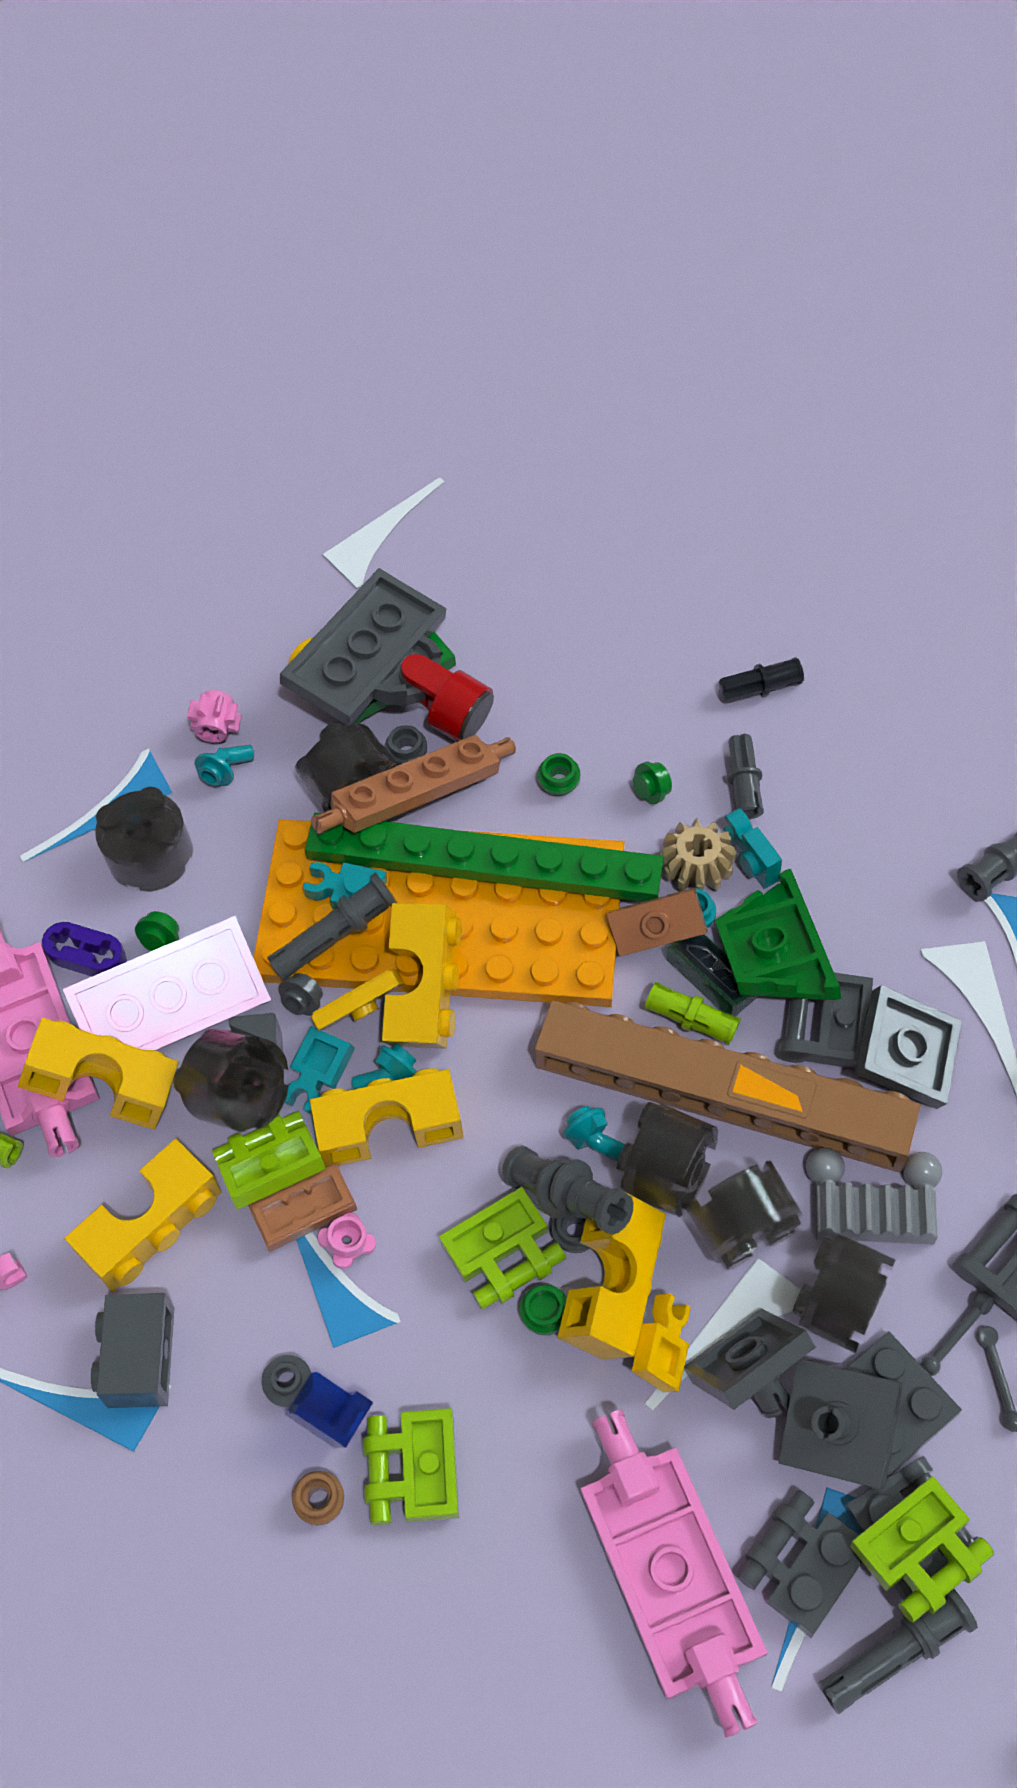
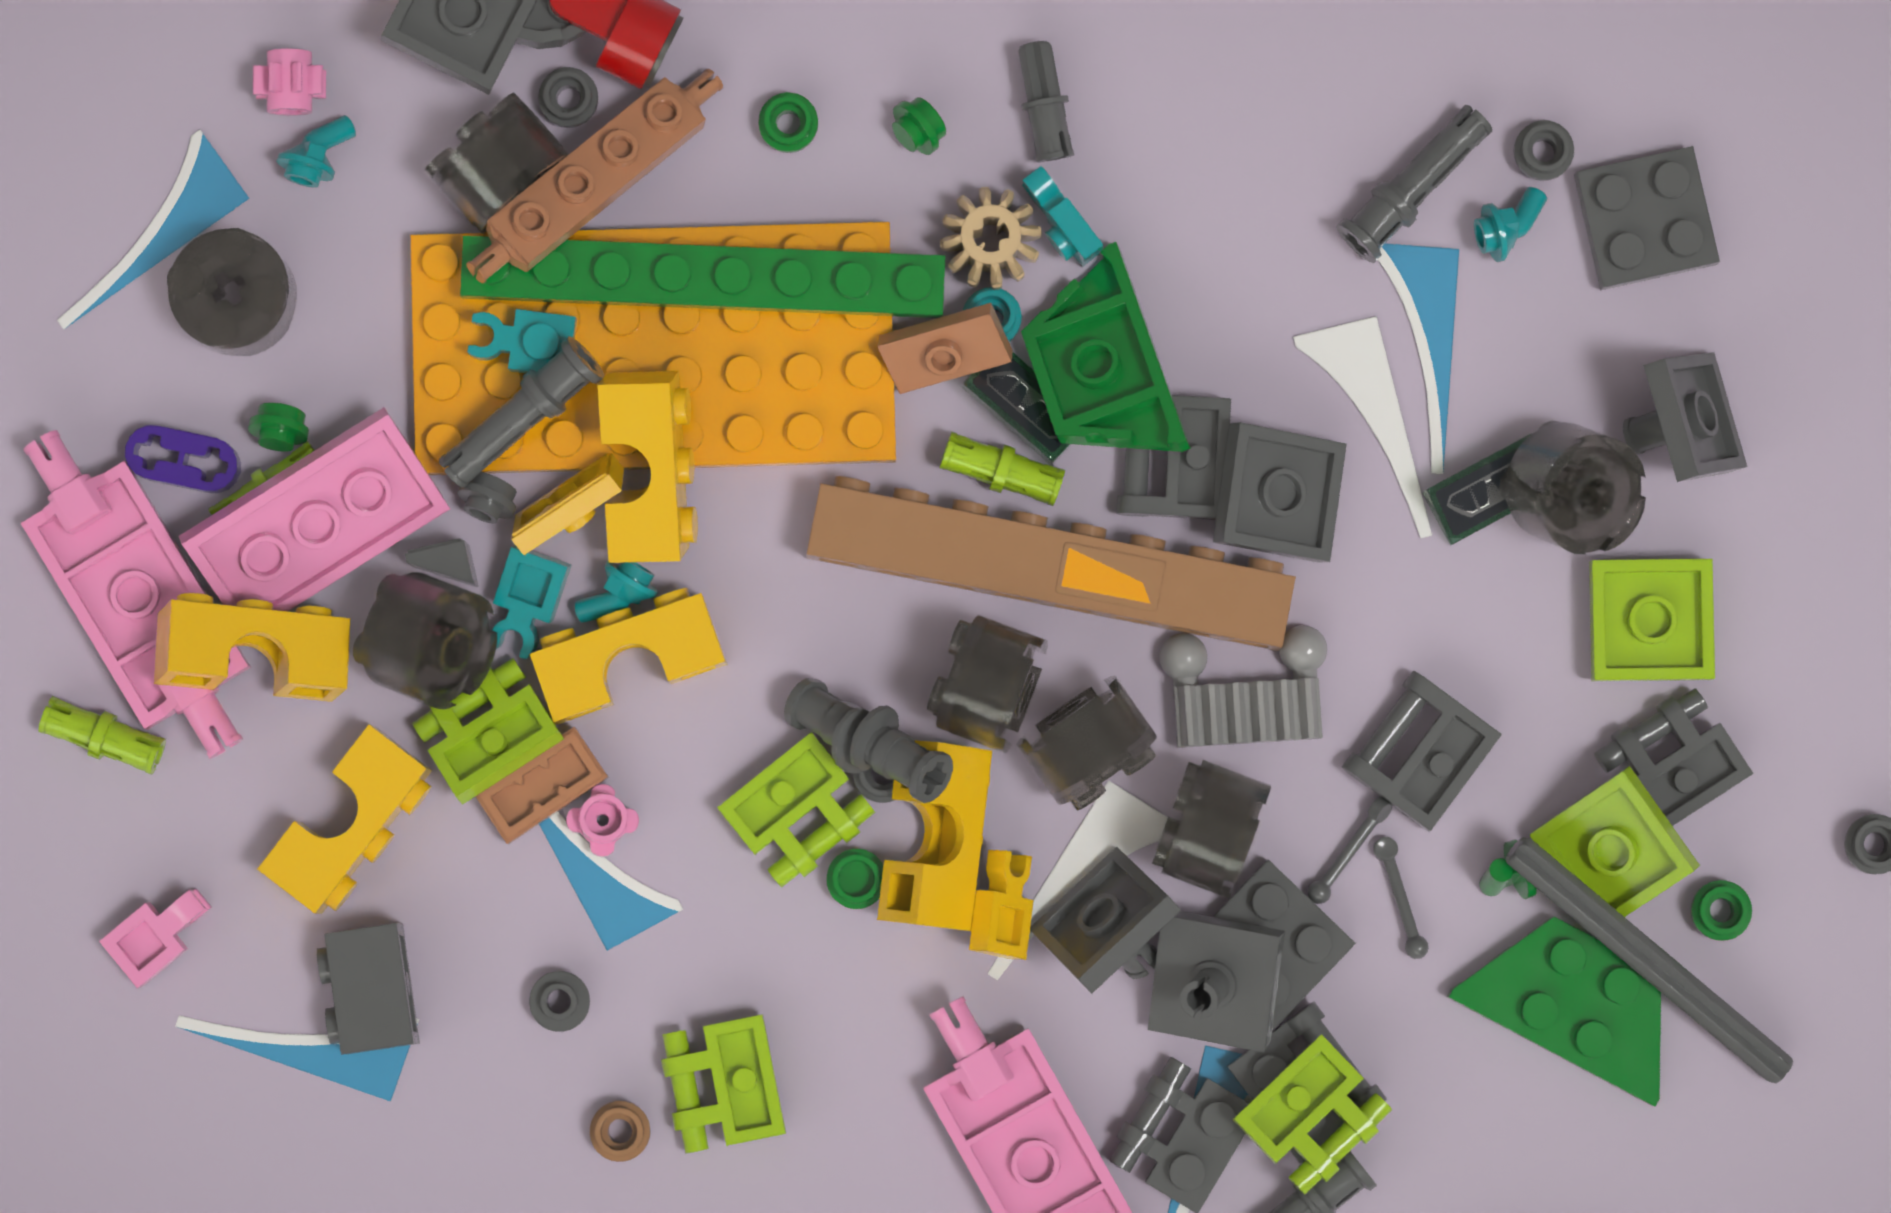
camera: 15 degrees left, 25 degrees up
(328, 1410) = (617, 1033): clear blue panel -> none
(586, 1130) = (884, 645): teal plate -> none

